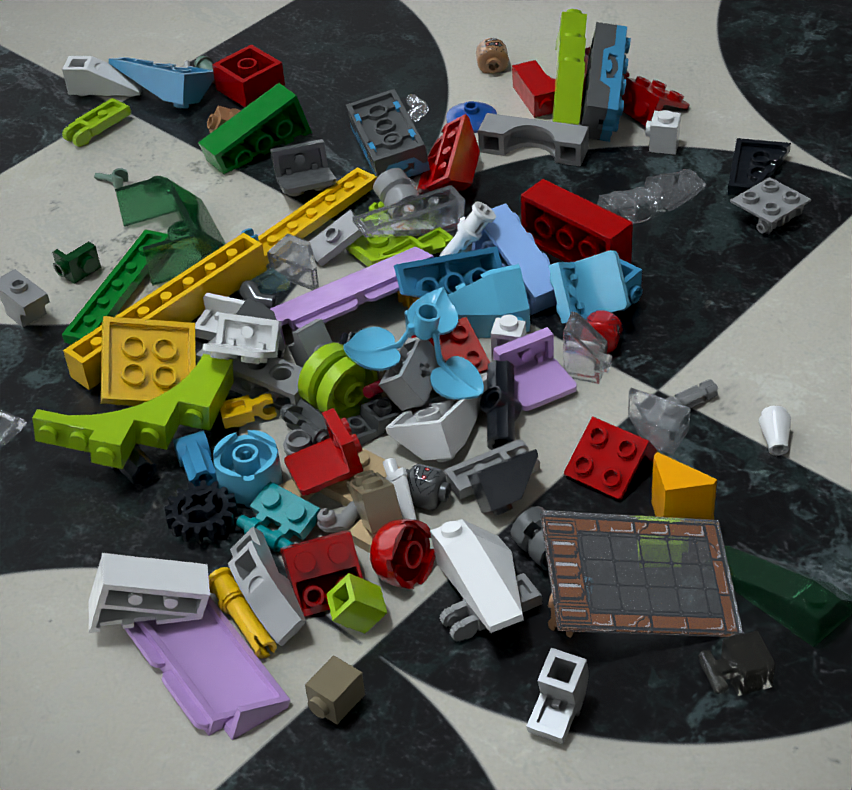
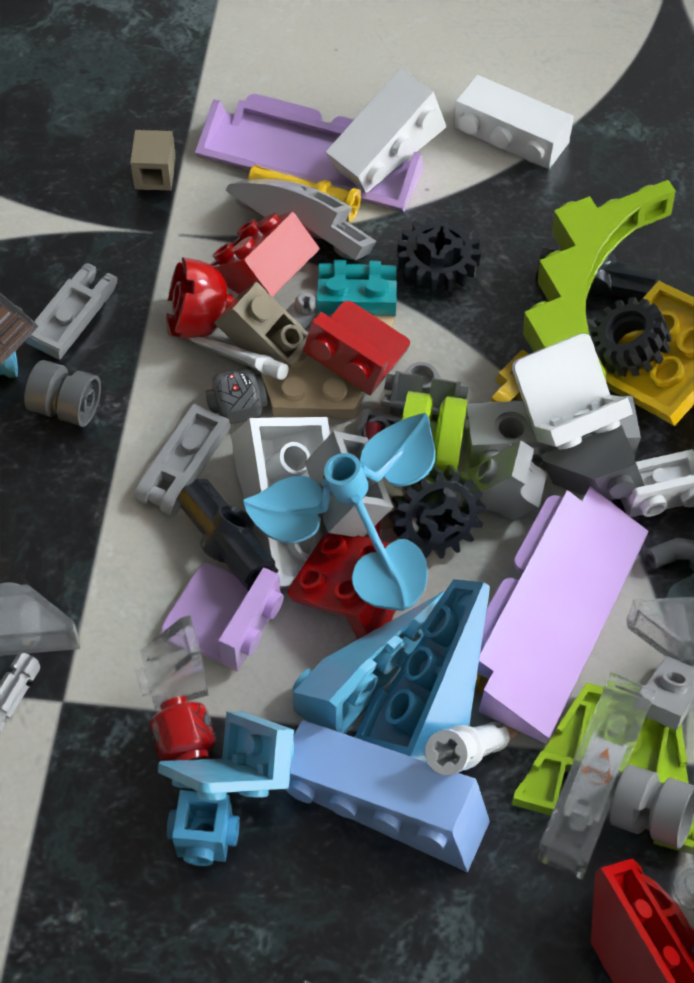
camera: 140 degrees right, 15 degrees up
(39, 582) = (513, 121): none -> white brick
(159, 355) = (638, 352): none -> black tyre
(195, 457) = (502, 301): dark azure piece -> none
(247, 464) = (434, 307): medium azure brick -> none
(356, 603) = (195, 232): lime brick -> none
(480, 571) = (102, 321): white wedge -> none
(503, 482) = (149, 428): black slope -> none
(506, 330) = (292, 645): white brick -> none
(572, 225) = (334, 895): red brick -> none
(608, 458) = (53, 547): red bracket -> none

